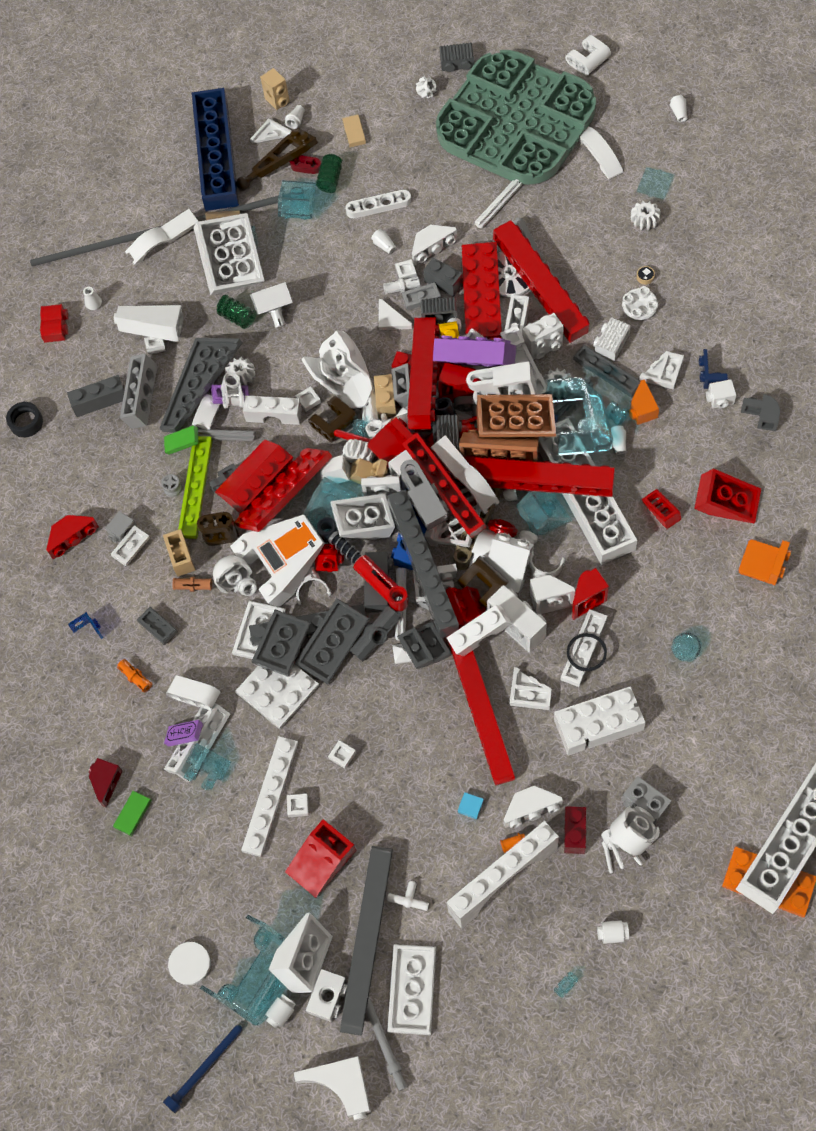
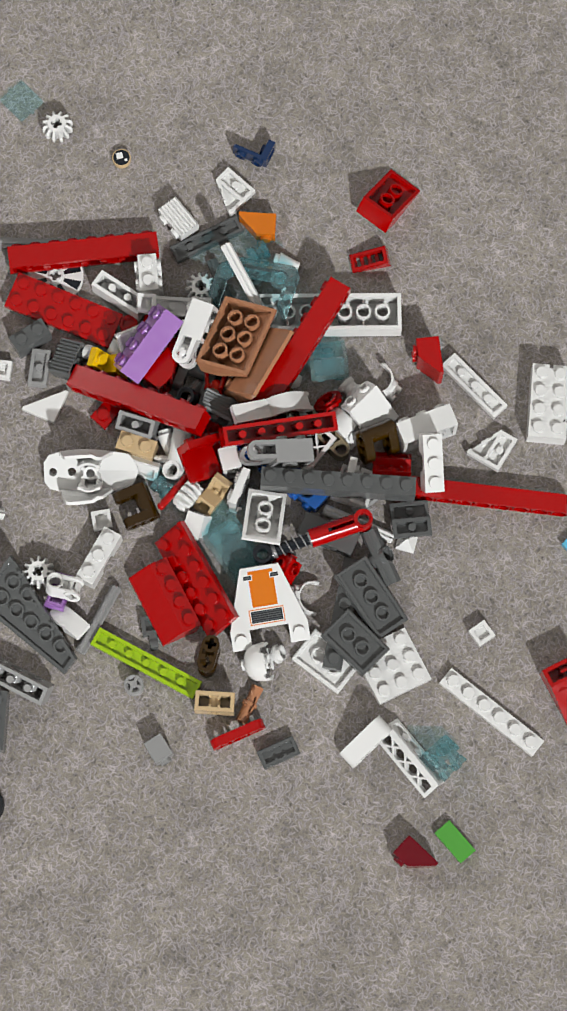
camera: 75 degrees left, 10 degrees up
(69, 533) = (139, 802): red slope -> none
(86, 619) = (249, 811): clear blue bracket -> none
(130, 545) = (181, 748): white plate -> none
(134, 675) = (319, 792): orange pin -> none
(160, 585) = (237, 734): none -> red beam
(181, 440) = (89, 657): bright green tile -> none
(183, 733) = (401, 765): medium lavender tile -> none
(297, 805) = (512, 690): white plate -> none
(401, 285) = (17, 381): white pin -> none
(550, 594) = (413, 391): white slope -> none
(576, 398) = (241, 274): none -> white axle
(592, 636) = (481, 401): black piece -> none
(640, 303) = (151, 177): white dish -> none
(686, 647) = (511, 302): clear light blue hair -> none
(721, 394) = (283, 155): white brick -> none
(764, 561) = (463, 199): orange bracket -> none
(766, 409) = (320, 125): dark grey brick -> none

